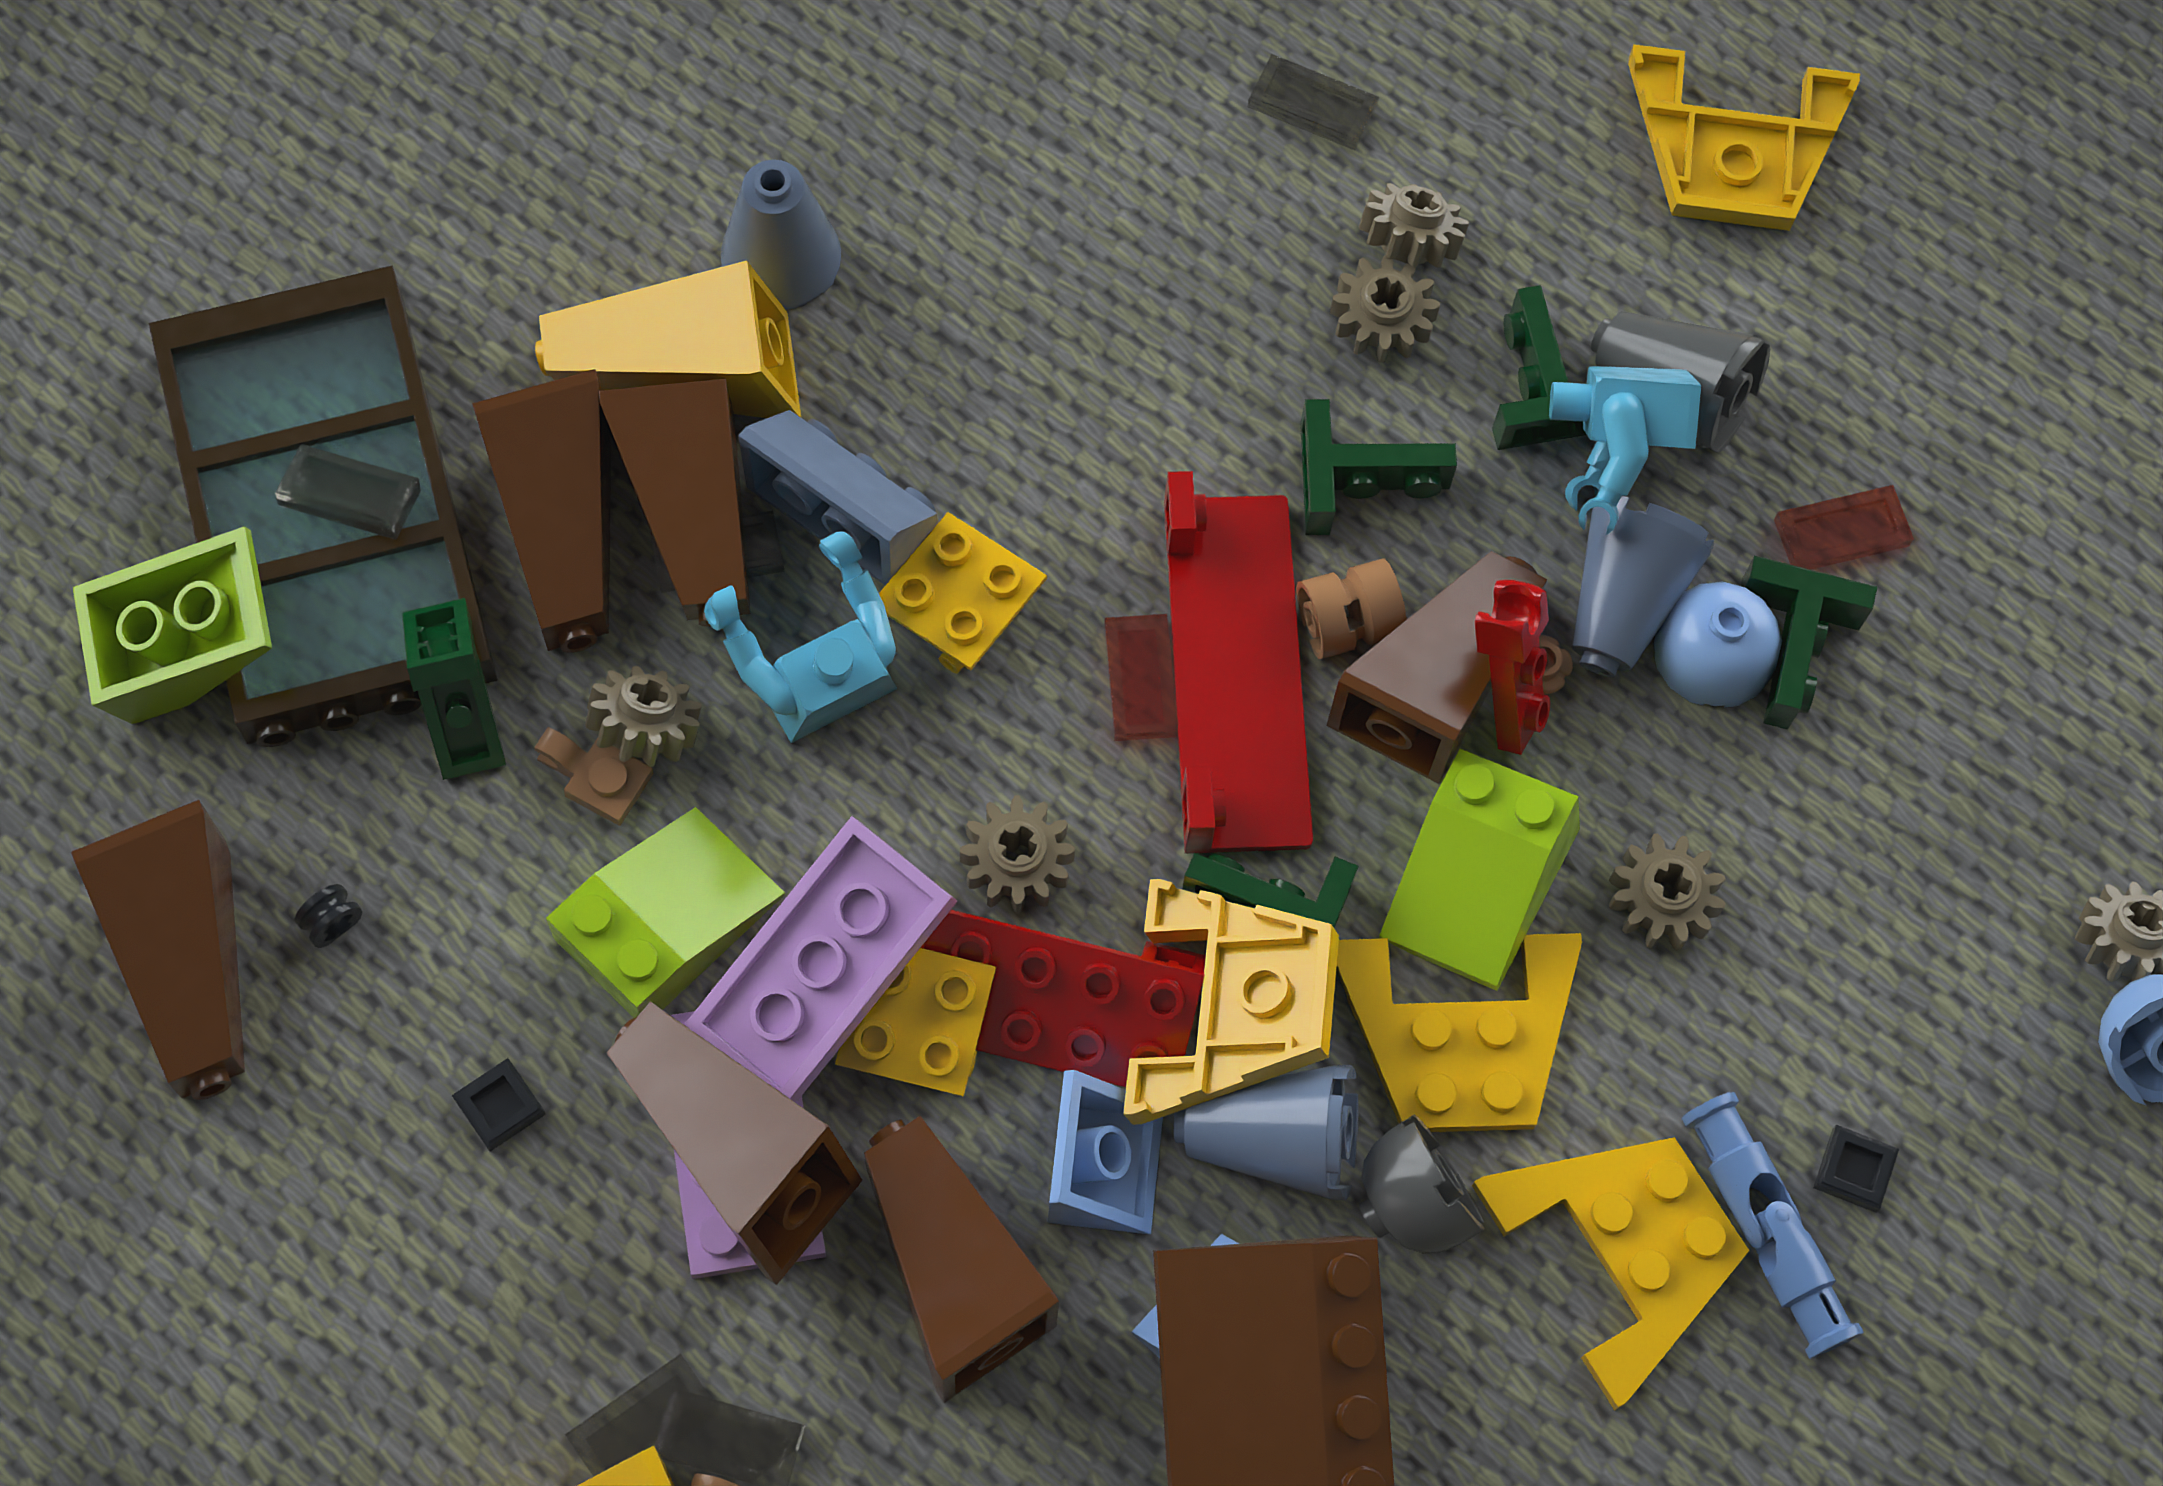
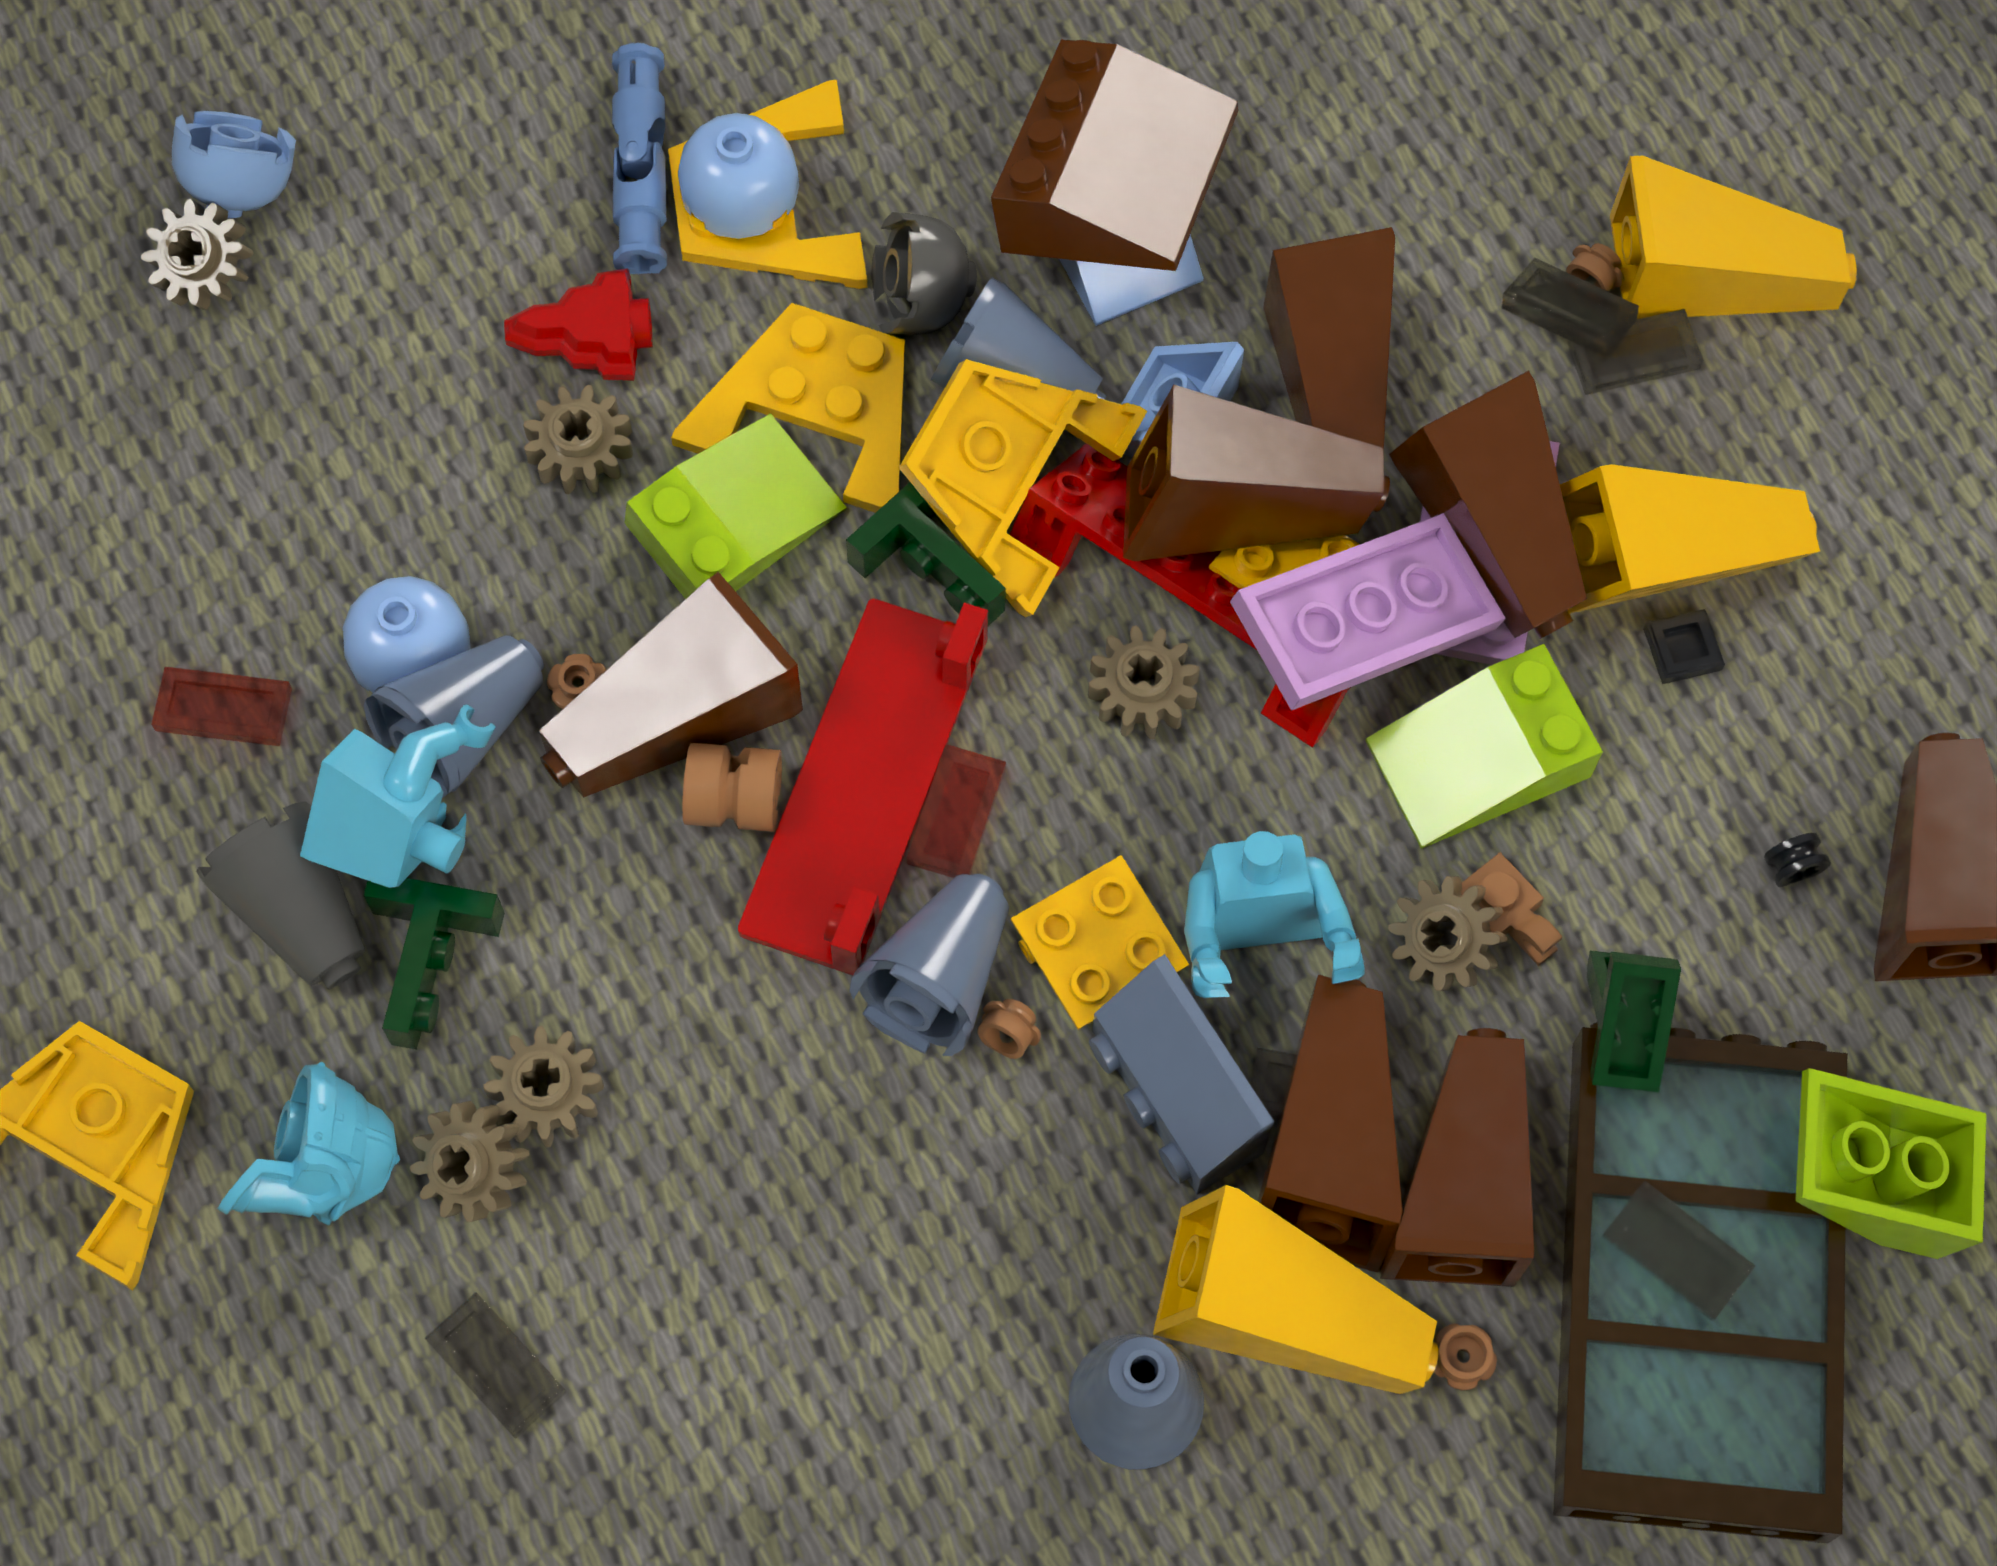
camera: 155 degrees left, 0 degrees up
(509, 364) = (1479, 1348): none -> medium nougat plate
(536, 1184) = (1669, 530): none -> yellow slope
(1002, 1036) = (1241, 479): none -> reddish brown slope
(1010, 501) = (1013, 1020): none -> medium nougat plate
(1094, 517) = (936, 967): none -> sand blue cone
(1363, 468) = (655, 924): dark green bracket -> none
(1516, 661) = (615, 642): red plate -> none
(1526, 187) = (328, 1153): none -> medium azure head
(1656, 1222) = (738, 175): none -> light blue cylinder
(1719, 1018) = (589, 327): none -> red rock
(1810, 604) = (322, 613): dark green bracket -> none
(1856, 1168) = (542, 181): black tile -> none

